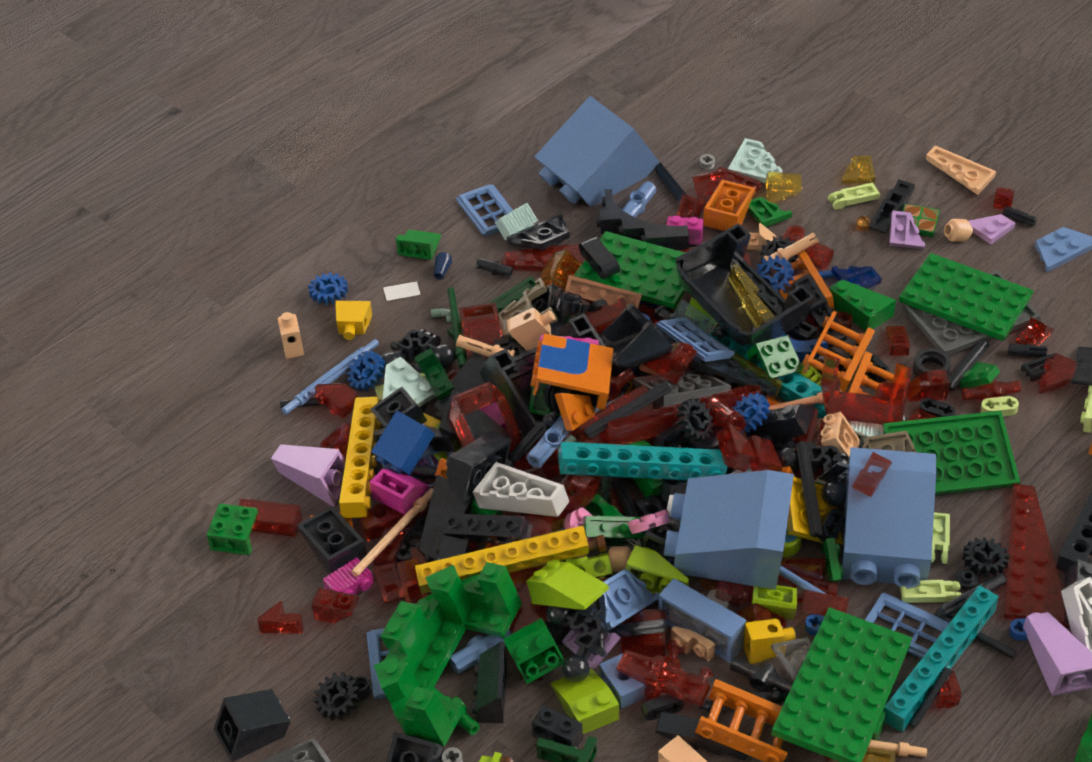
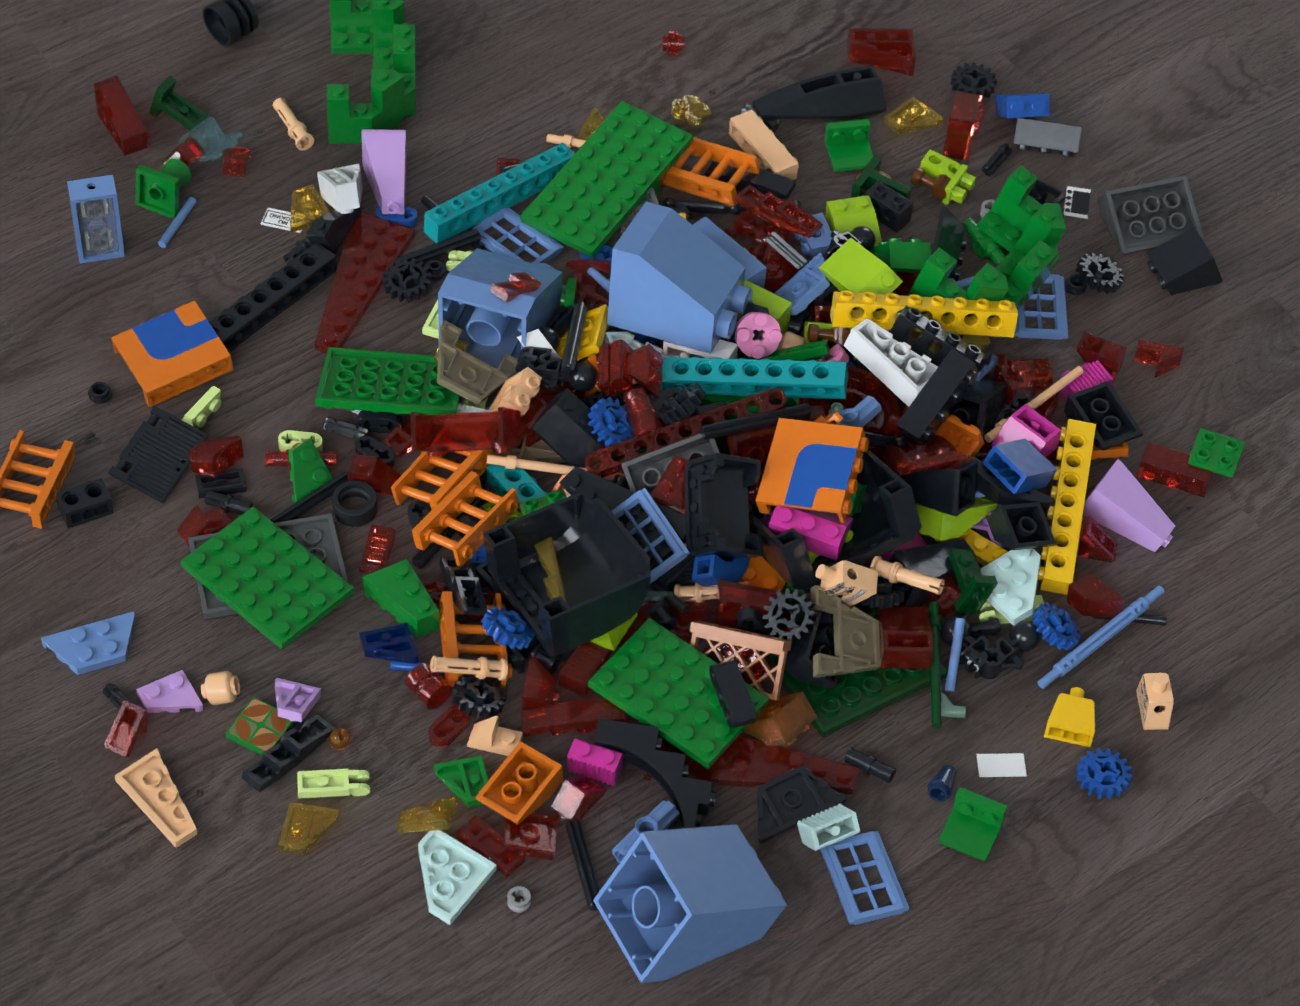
camera: 175 degrees left, 5 degrees up
(442, 335) = (955, 655): none -> medium blue bar

